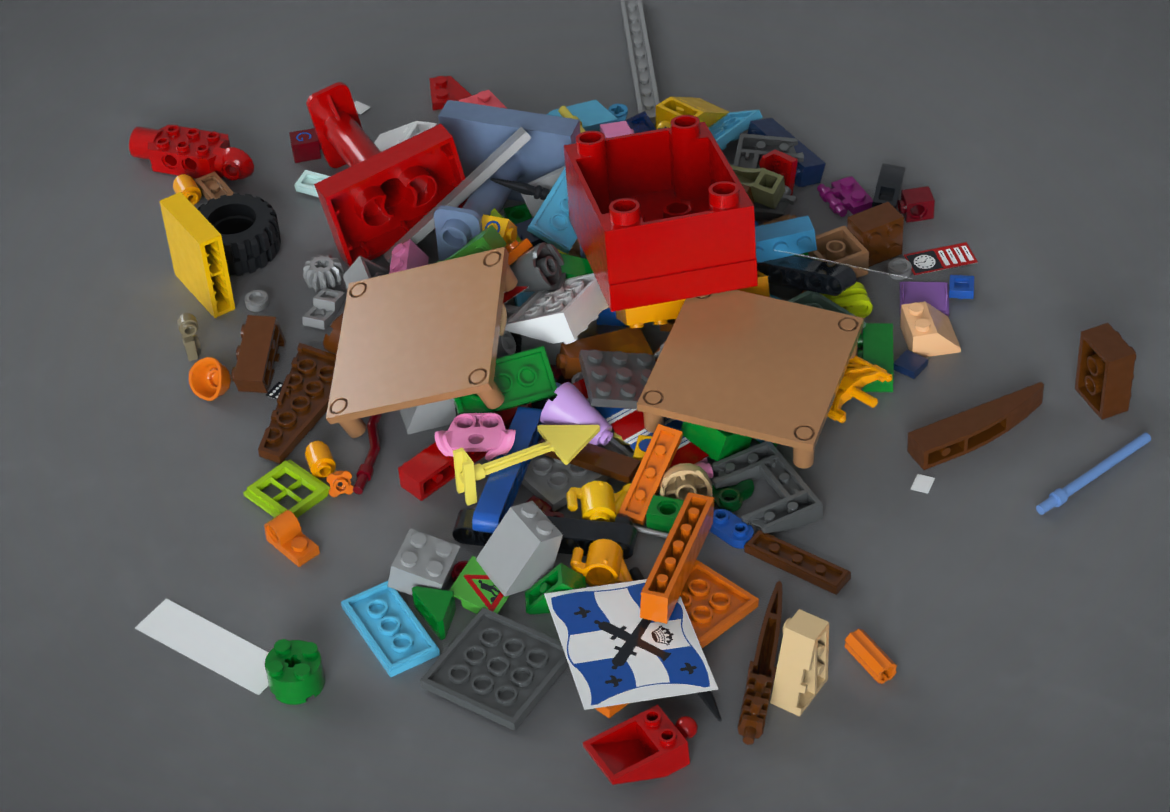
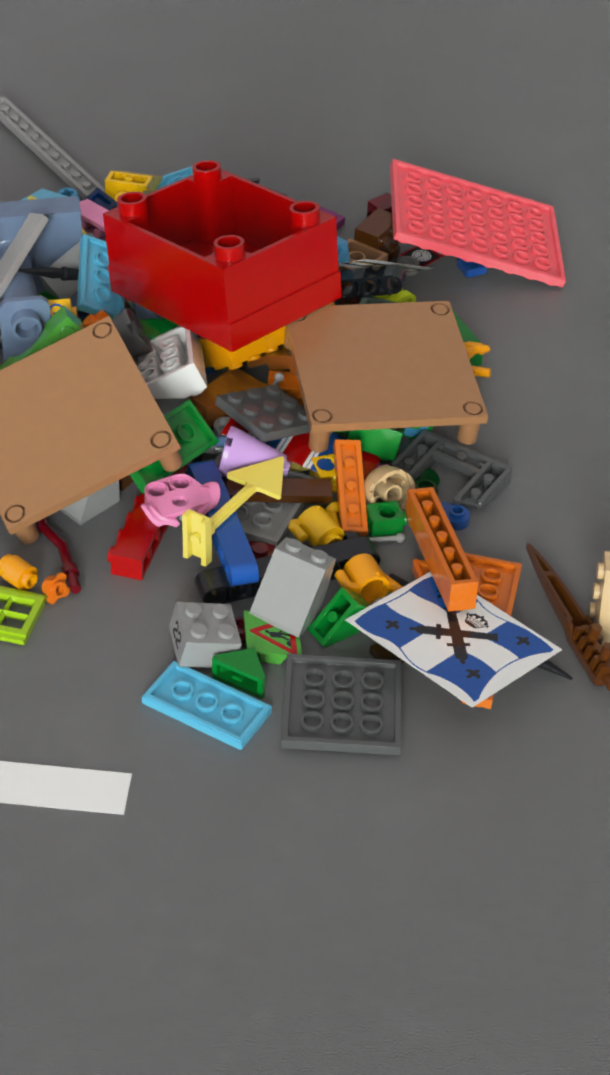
camera: 35 degrees left, 0 degrees up
(286, 536) = (38, 654): orange plate -> none
(294, 671) = (153, 776): green brick -> none
(643, 747) = (533, 723): red slope -> none
(797, 562) = (522, 524): reddish brown tile -> none
(888, 185) = (353, 203): black slope -> none
(910, 364) = (483, 334): dark blue tile -> none
(922, 483) = (566, 429): white sticker -> none
(927, 330) = (474, 308): light nougat slope -> none
(931, 292) = (446, 283): medium lavender piece -> none
(972, 427) = (571, 376): reddish brown slope -> none
(986, 243) = (475, 223): none -> coral plate

